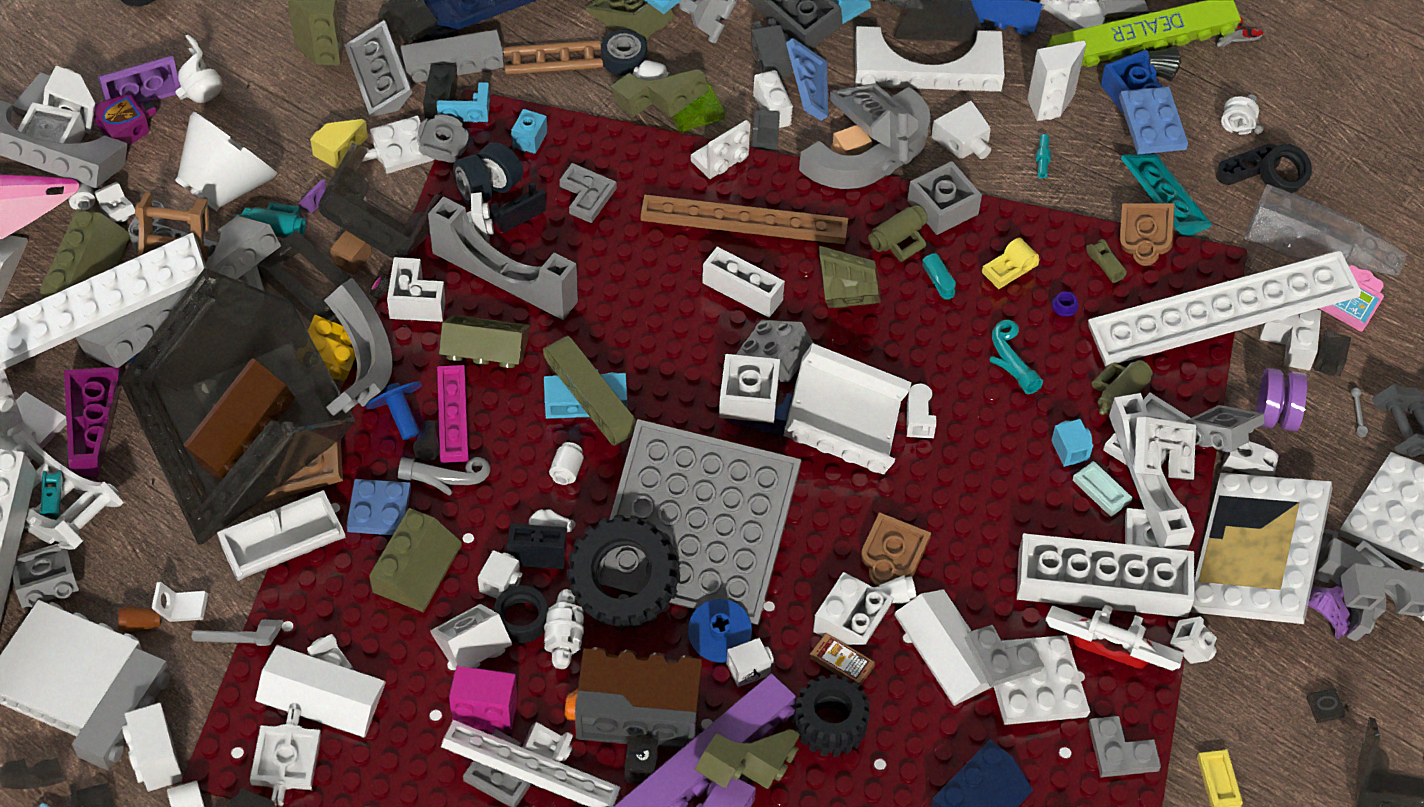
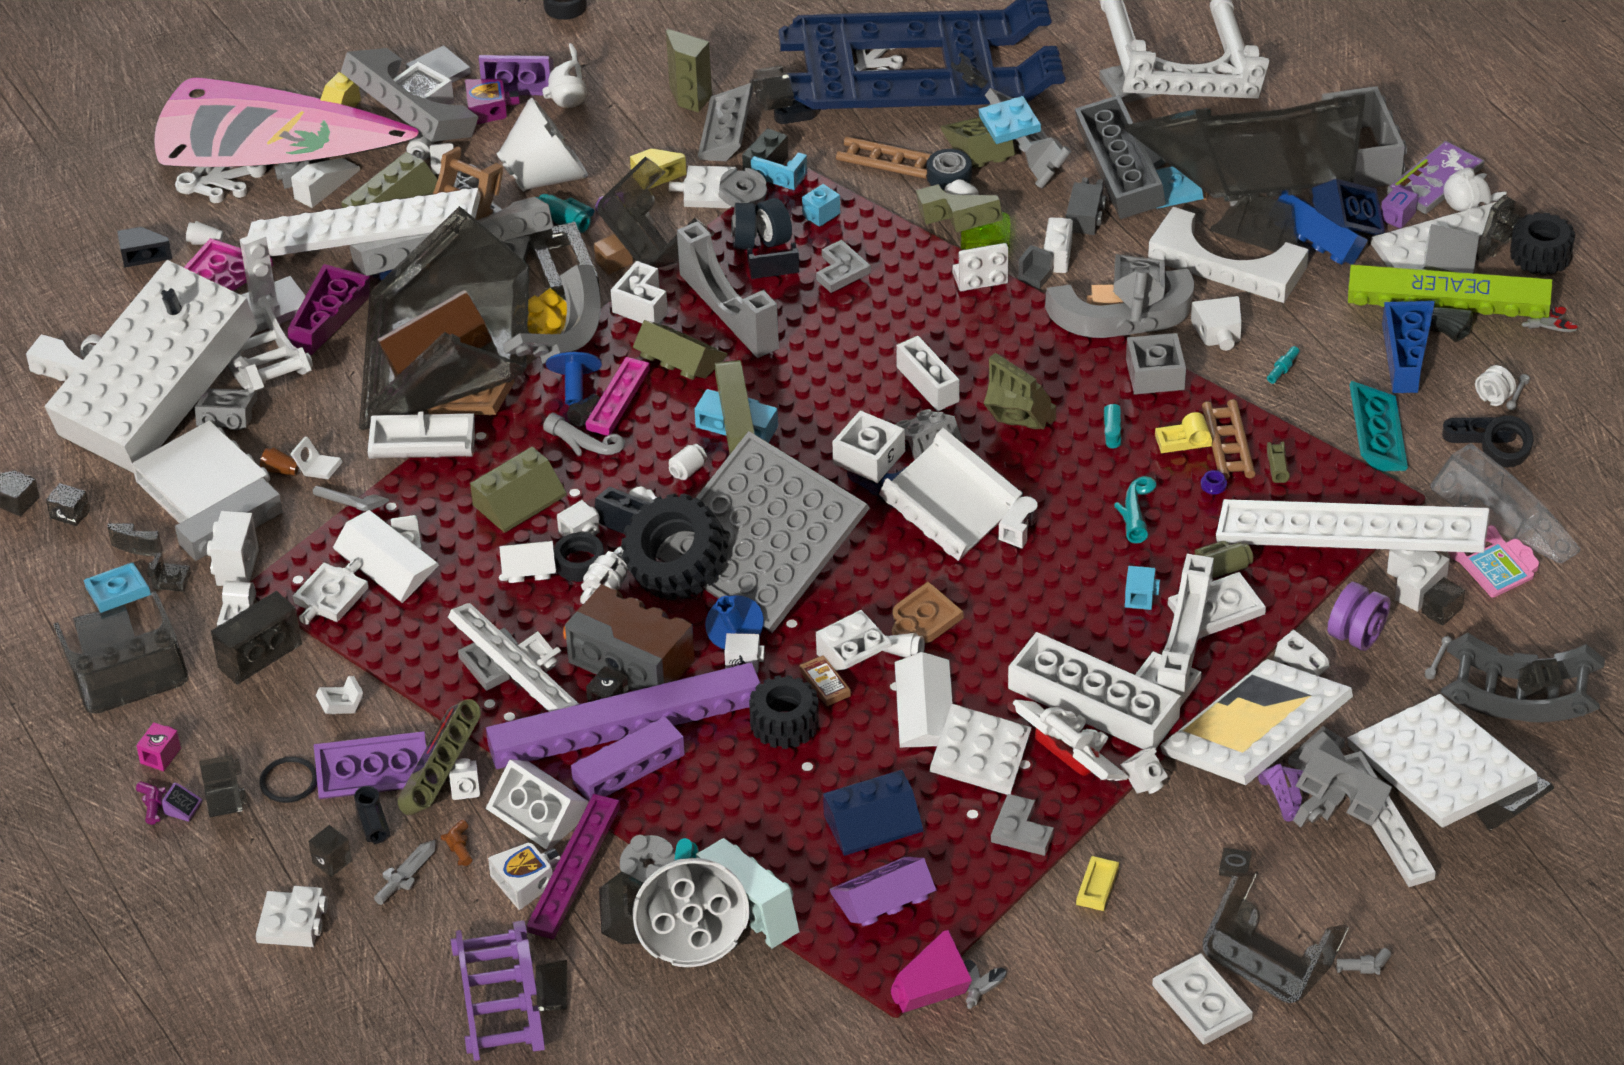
camera: 30 degrees right, 10 degrees down
(51, 495) = (265, 347): teal bar -> none
(68, 91) = (448, 59): white slope -> none
(377, 506) = (512, 440): medium blue plate -> none
(466, 53) = (803, 130): light grey brick -> none
(479, 217) = (730, 256): white plate -> none
(483, 699) = (506, 600): dark pink brick -> none
(744, 219) = (966, 329): medium nougat plate -> none
(757, 760) = (698, 717): olive arch -> none
(811, 78) = (1104, 237): medium blue wing -> none
(897, 229) = (1099, 377): olive piece -> none
(998, 663) = (950, 720): light grey plate -> none
(1050, 239) = (1235, 429): none -> medium nougat bar
(1055, 79) = (1329, 299): white slope -> none
(1102, 488) = (1145, 632): light aqua tile -> none
(1147, 230) = (1331, 447): medium nougat plate -> none
(1153, 120) = (1395, 358): medium blue plate -> none
(1160, 434) = (1201, 591): white plate -> none
(1225, 427) = (1283, 618): light grey plate -> none

